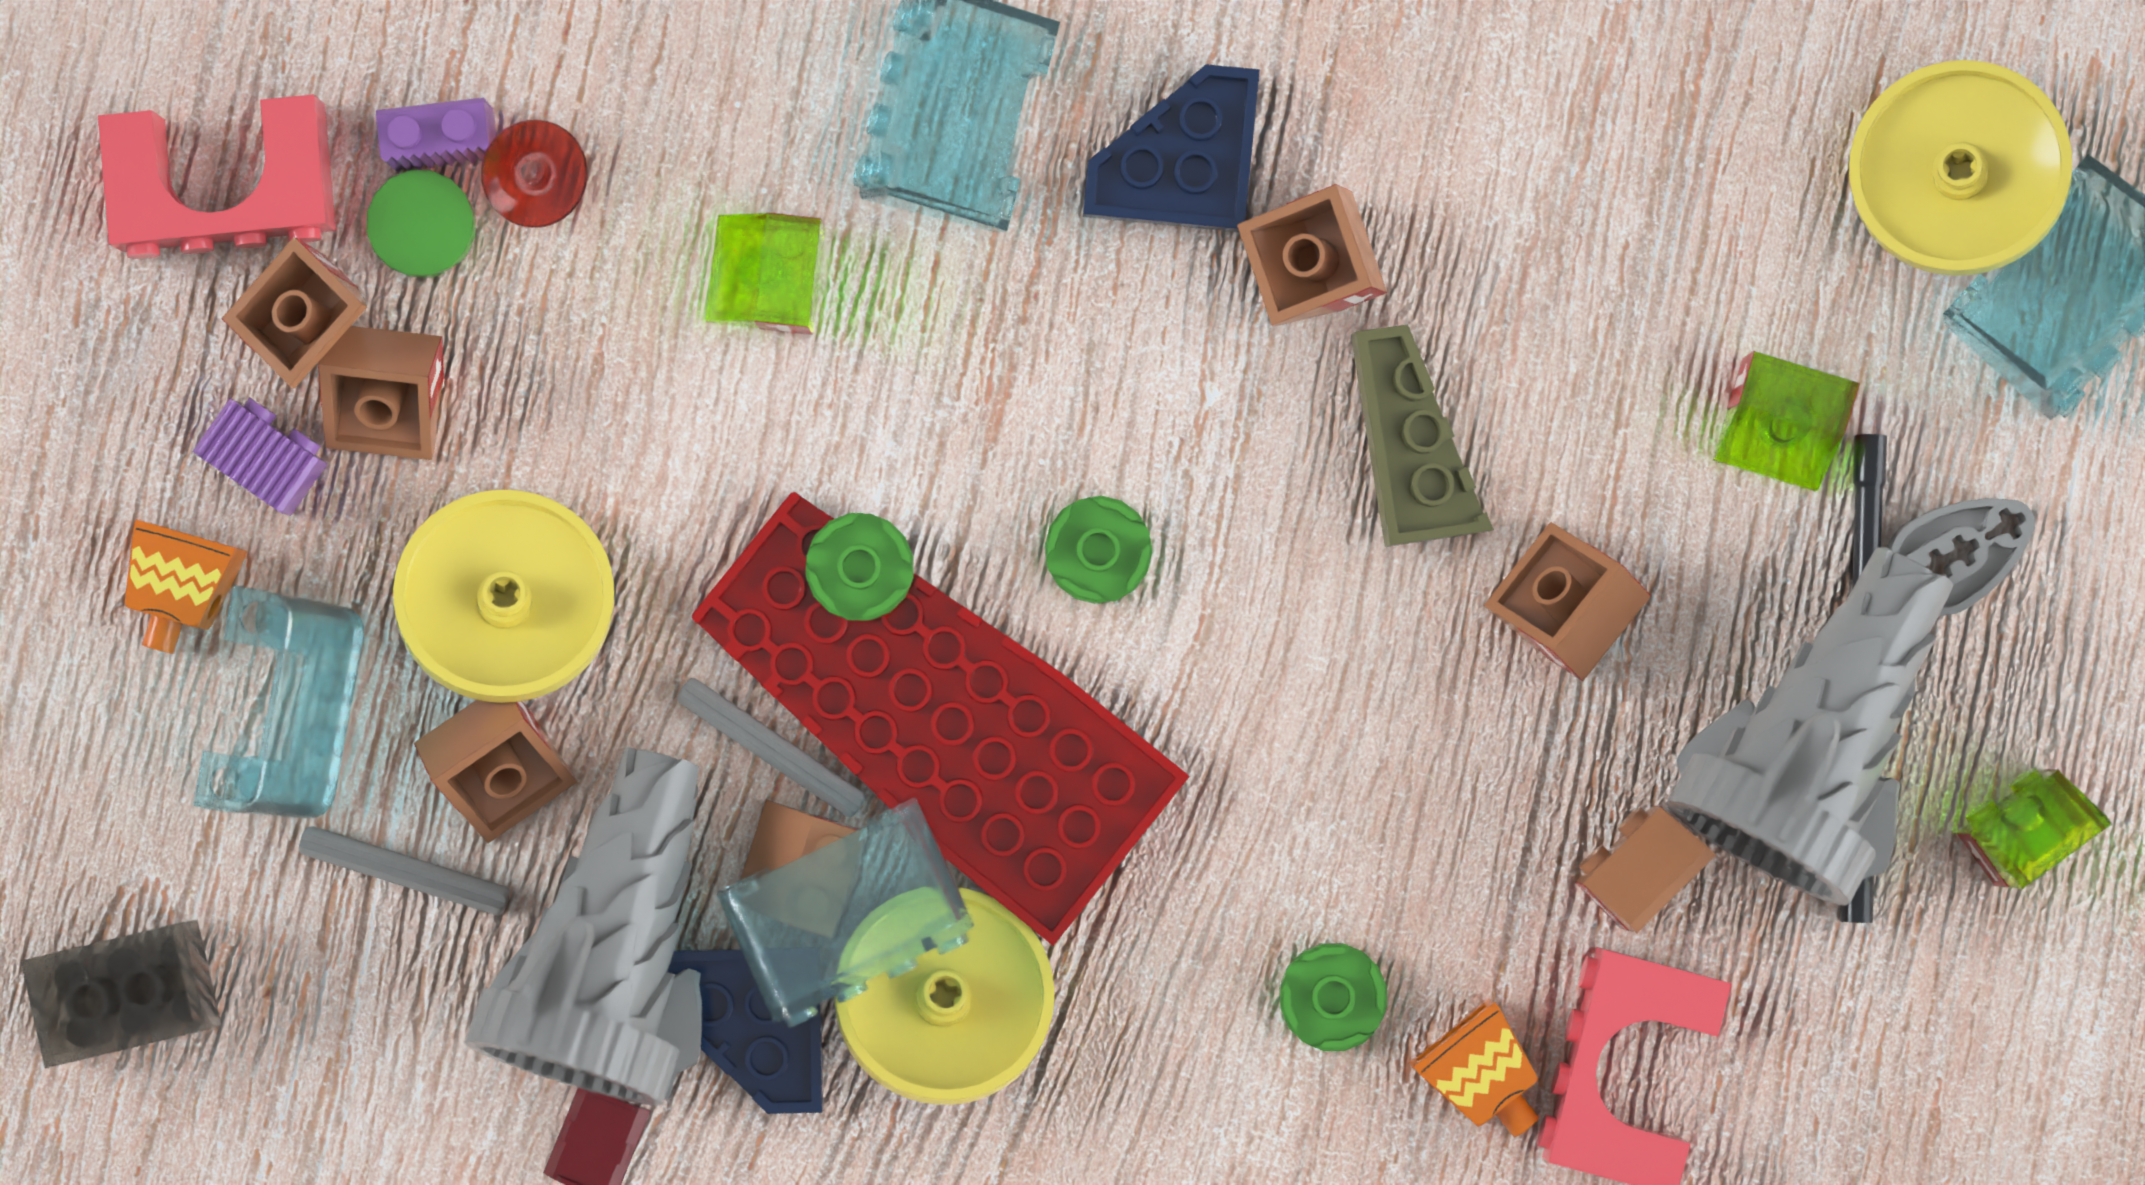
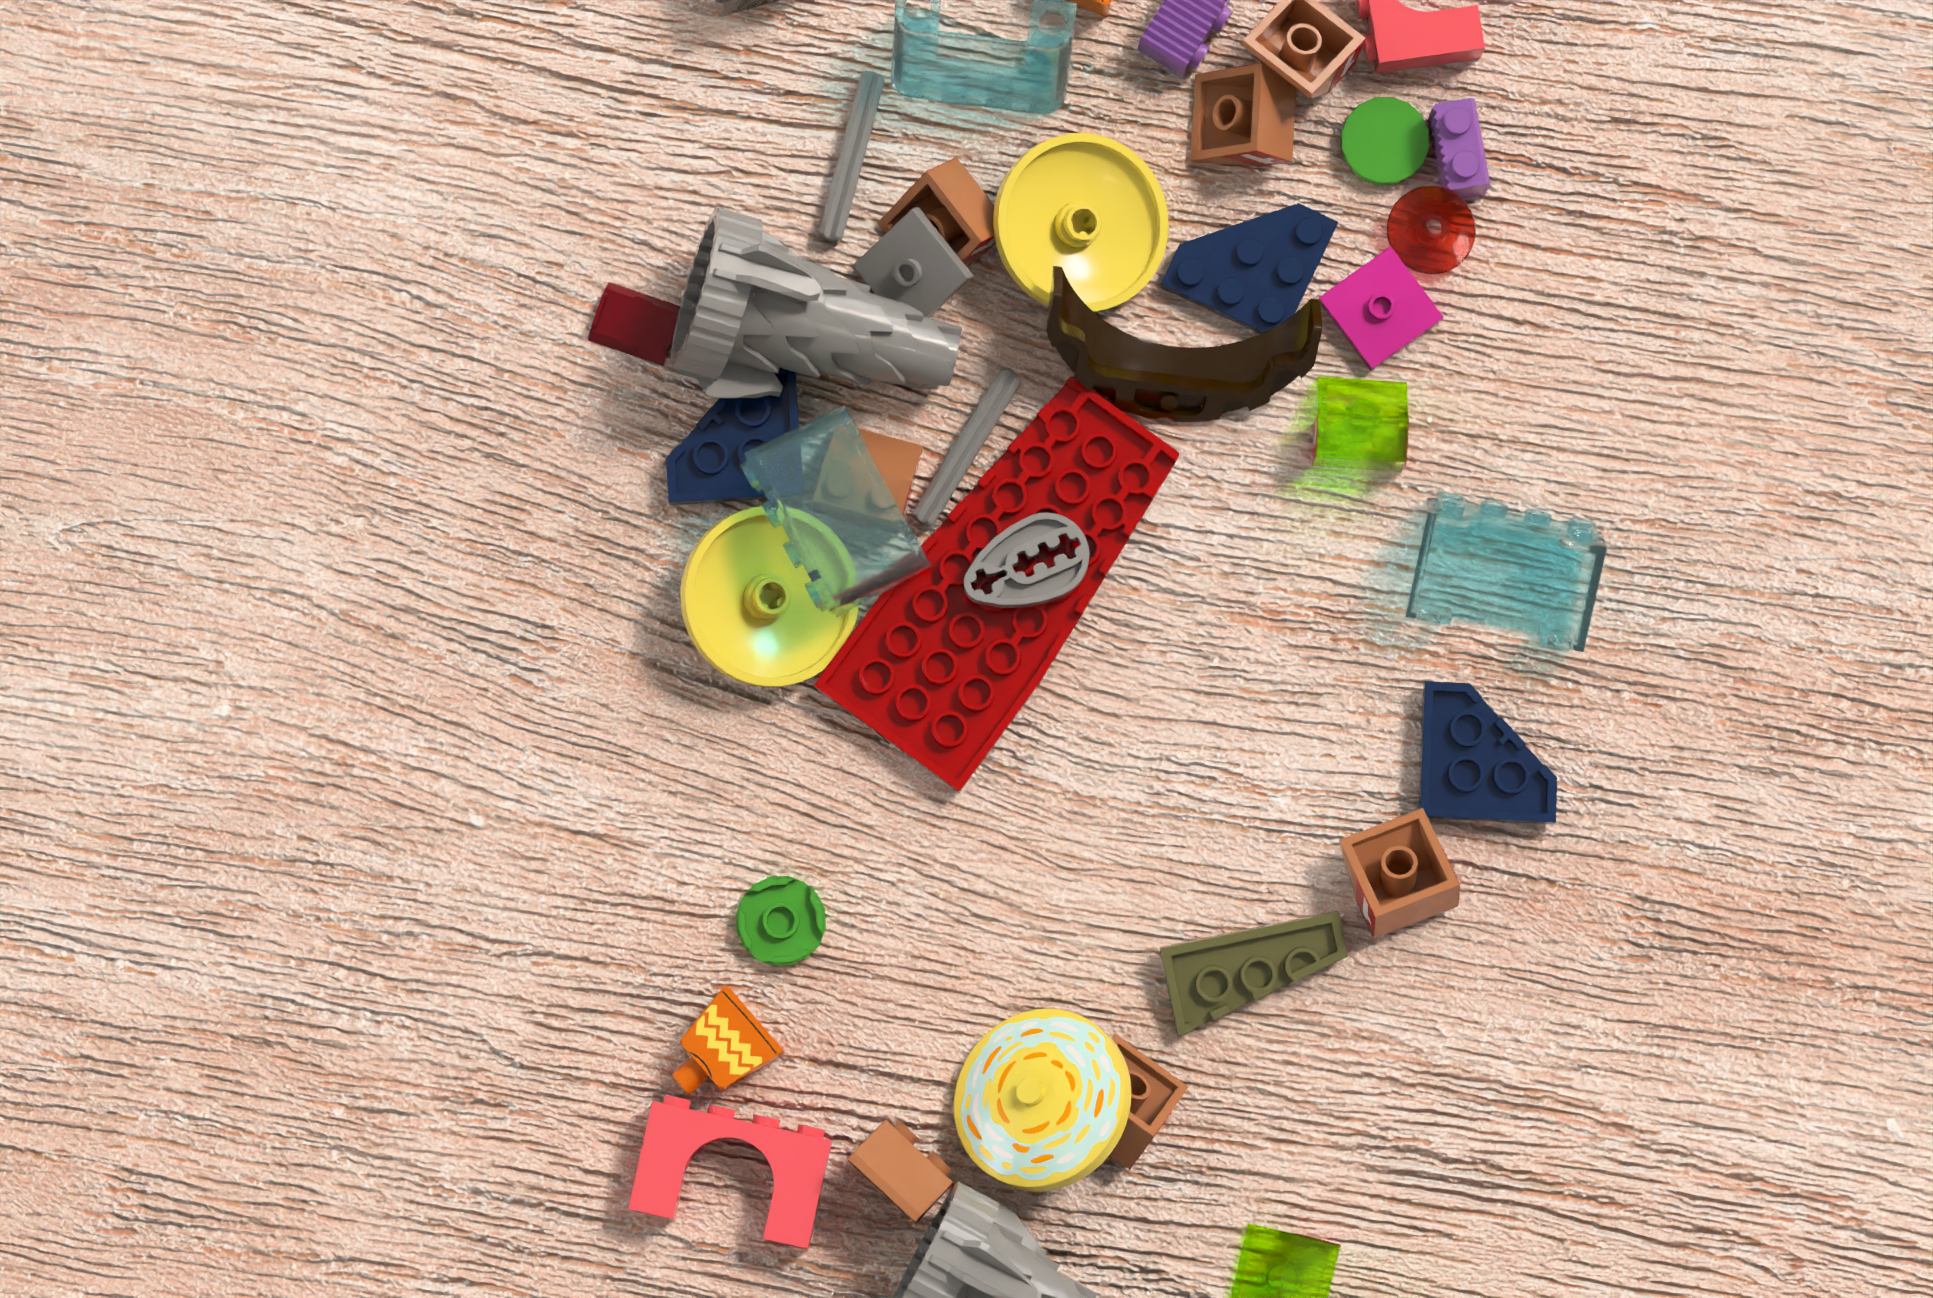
camera: 85 degrees right, 5 degrees down
(546, 801) = (914, 265): none -> light grey plate
(569, 390) = (1254, 268): none -> dark blue plate
(626, 240) = (1380, 308): none -> dark pink plate
(701, 487) = (1179, 380): none -> dark brown windscreen
(859, 567) = (1119, 510): bright green tile -> none
(888, 682) = (1025, 538): none -> light grey piece
(1098, 549) = (1144, 709): bright green tile -> none
(1567, 695) = (1042, 1099): none -> dish

